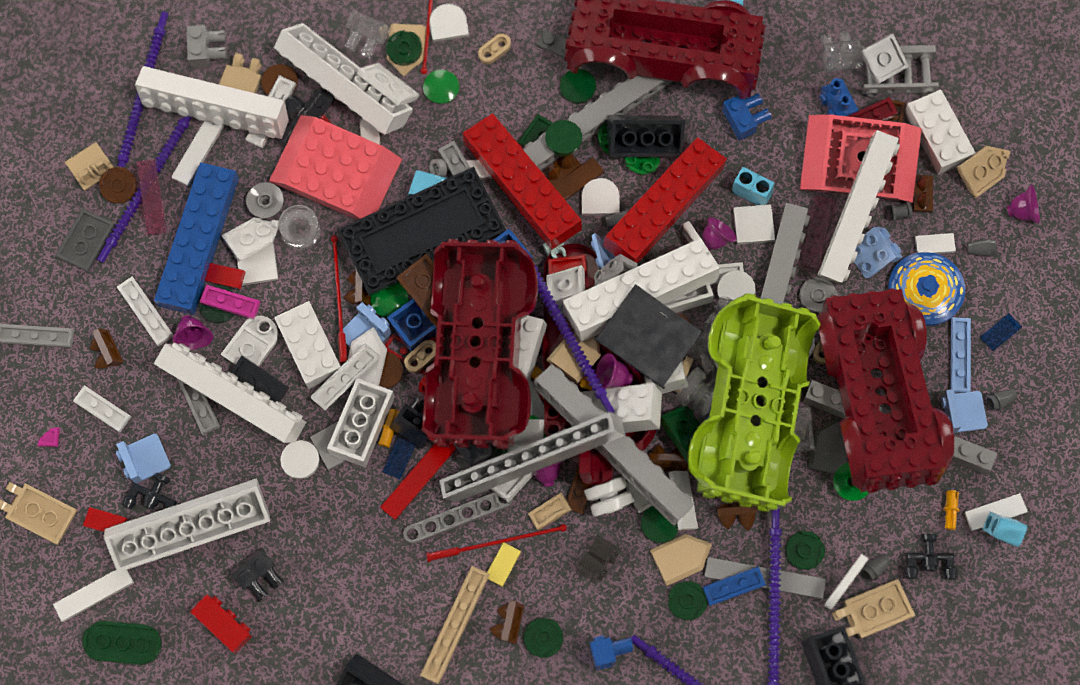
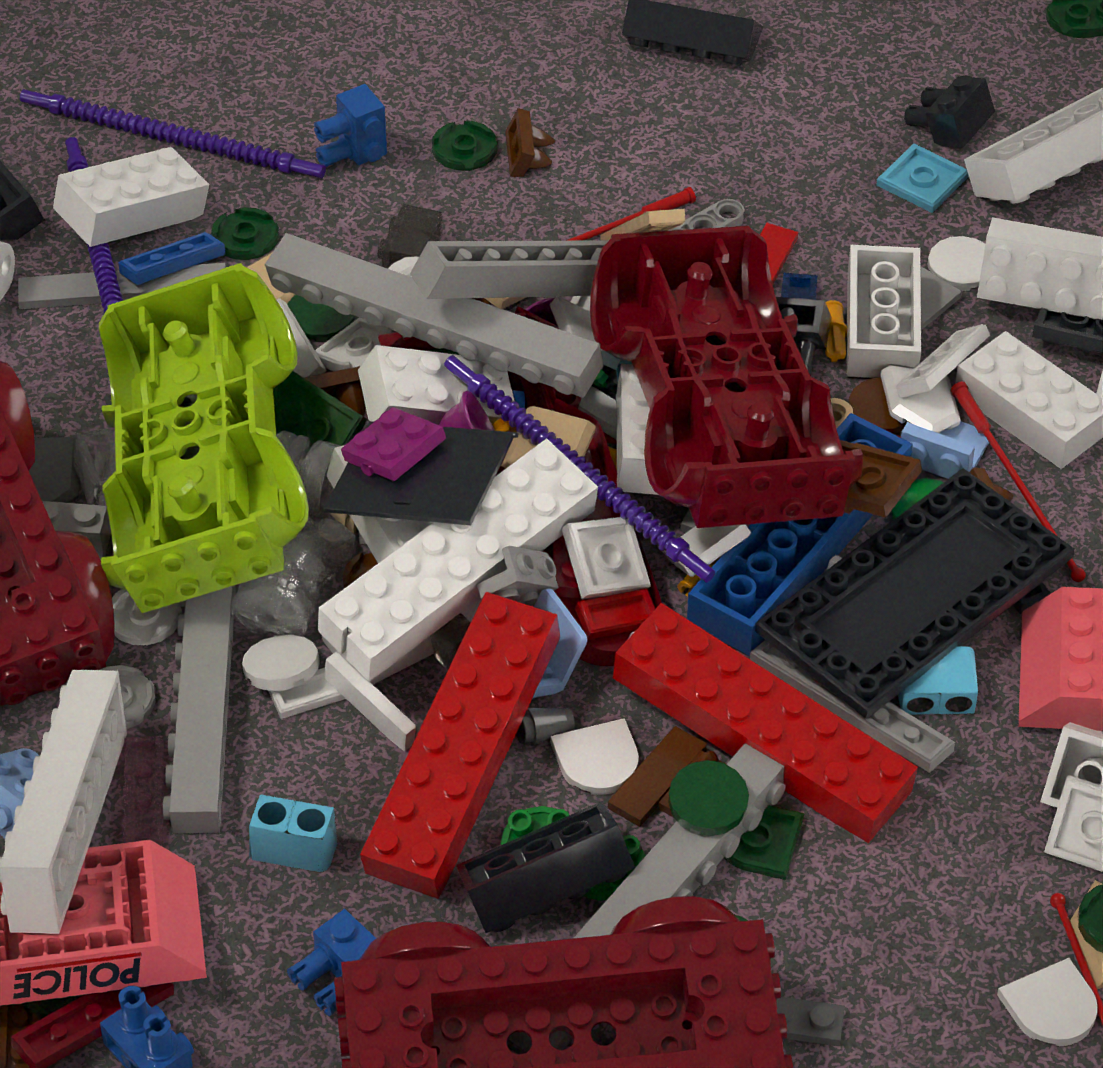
camera: 160 degrees right, 25 degrees down
(222, 623) = (971, 50): red brick -> none
(292, 532) = (922, 178): none -> medium azure tile
(438, 167) = (939, 722): light grey tile -> none
(441, 86) = (1007, 877): green dish -> none
(455, 625) = (609, 128): tan tile -> none
(481, 469) = (649, 222): none -> tan tile
(492, 47) = (927, 974): tan plate -> none
(503, 564) = (564, 211): light yellow tile -> none
(657, 354) = (393, 444): none -> magenta plate
(717, 234) = (336, 737): magenta hat -> none
(750, 629) = (130, 196): none -> white brick
(754, 224) = (273, 773): white tile -> none
(804, 556) = (62, 343): dark green tile -> none

